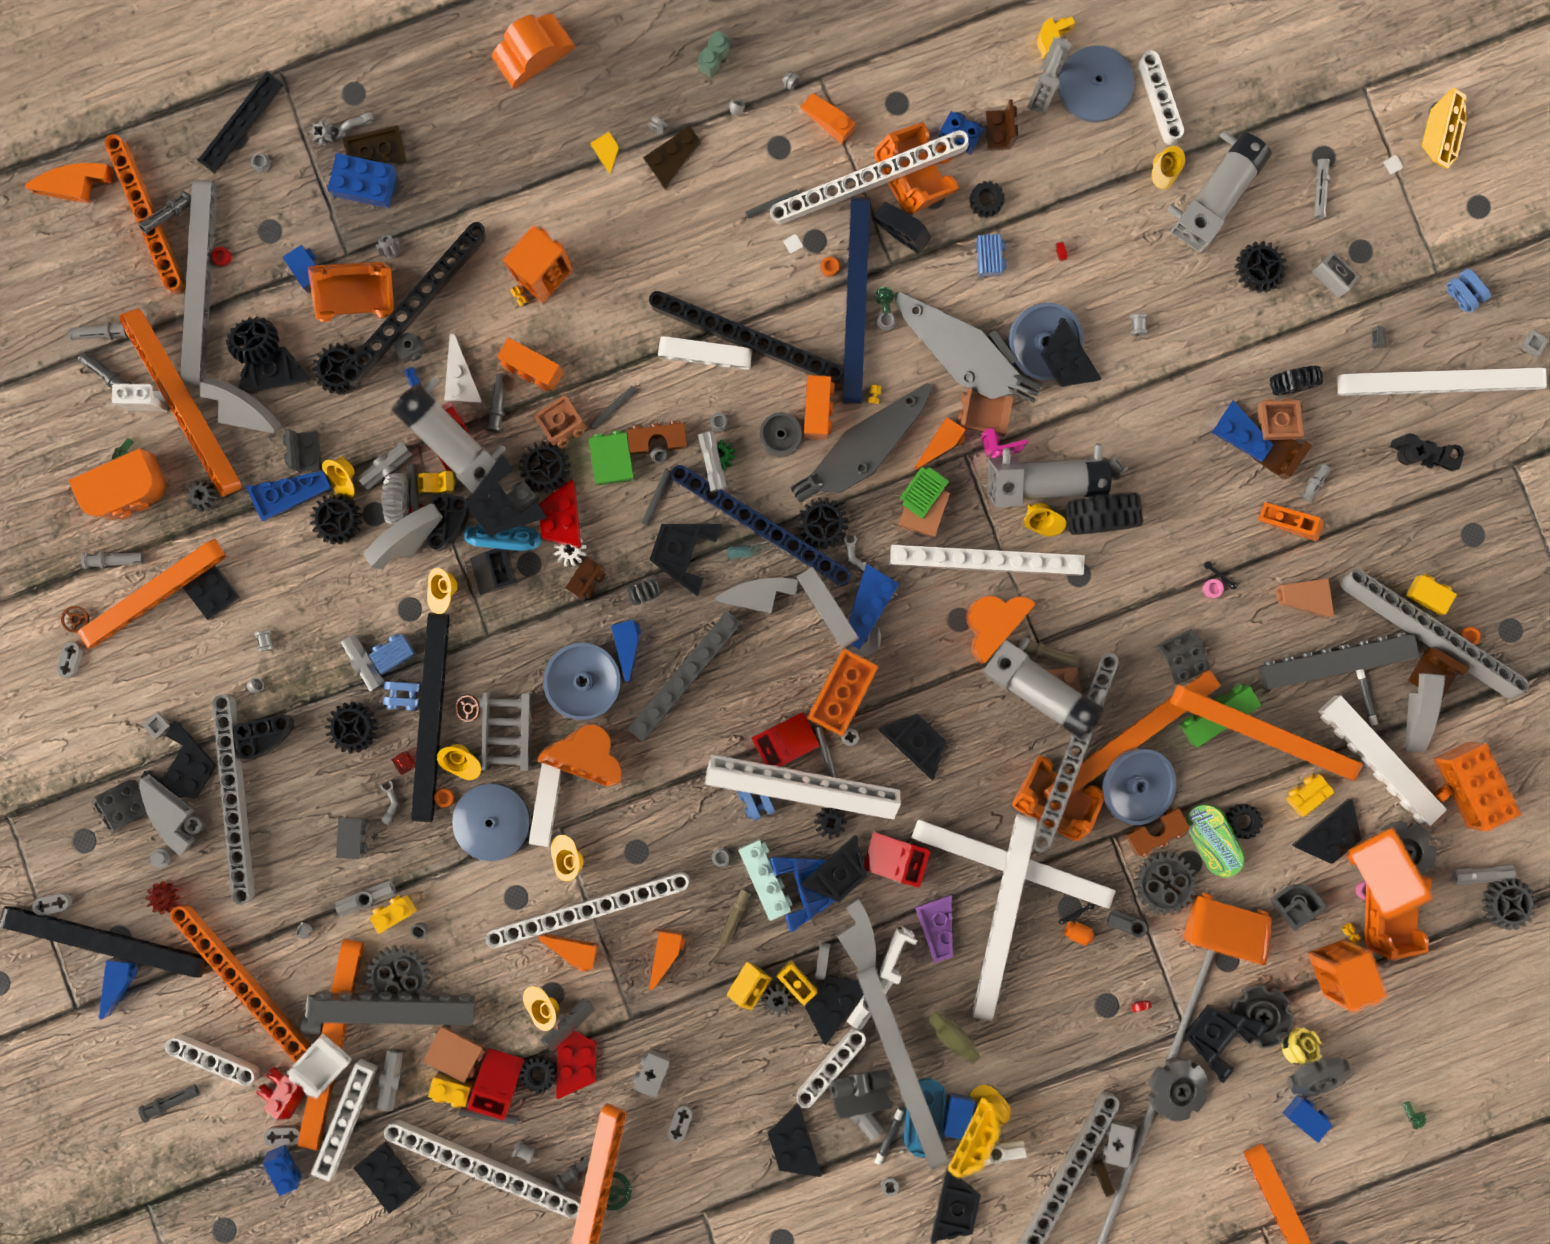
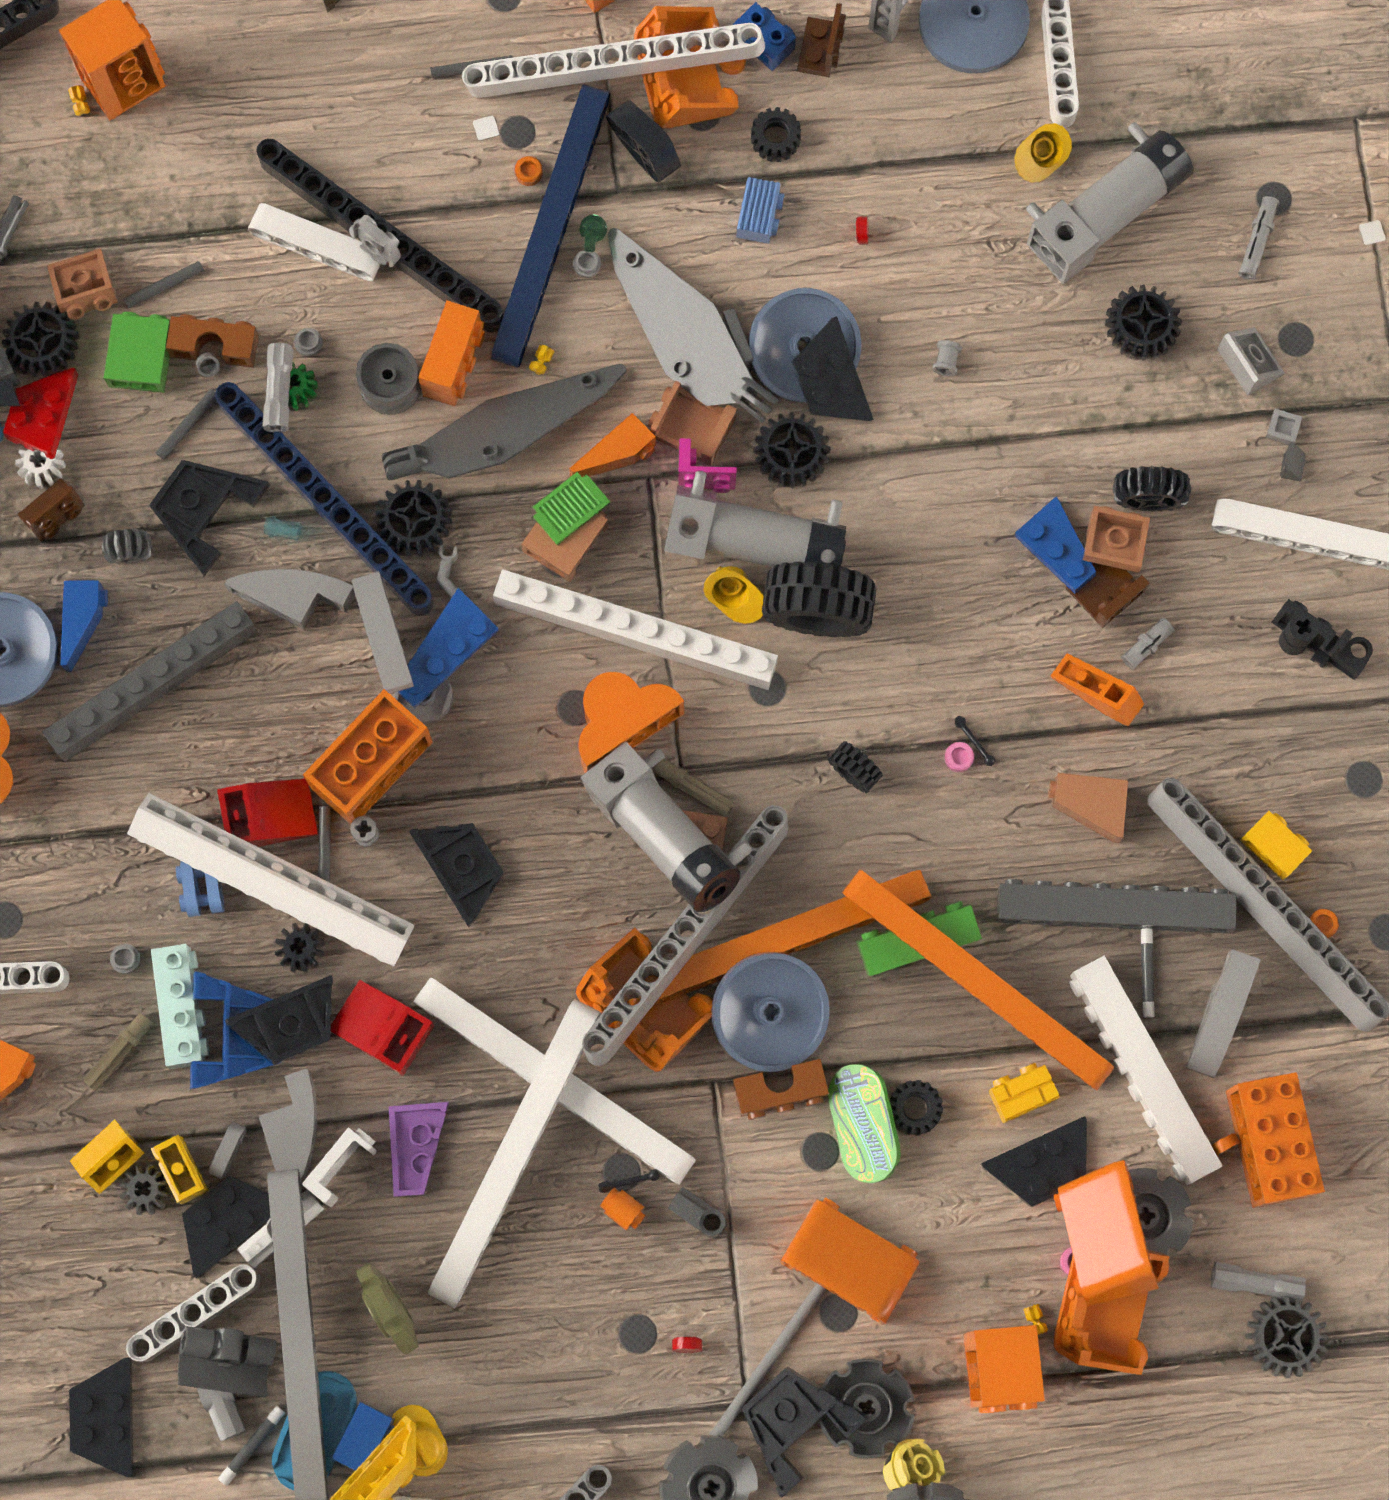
camera: 10 degrees right, 10 degrees down
(530, 365) = (62, 194): orange brick -> none
(748, 346) = (376, 243): none -> light grey plate
(1054, 406) = (802, 448): none -> black gear
(1117, 468) = (860, 547): light grey bush -> none
(1151, 614) = (855, 767): none -> black tyre
(1157, 897) = (794, 1151): dark grey gear -> none
(1184, 656) = (890, 843): dark grey bracket -> none
(1298, 905) = (963, 1252): dark grey brick -> none
(1368, 314) = (1283, 427): none -> light grey plate
(1437, 663) = (1275, 963): reddish brown bracket -> none

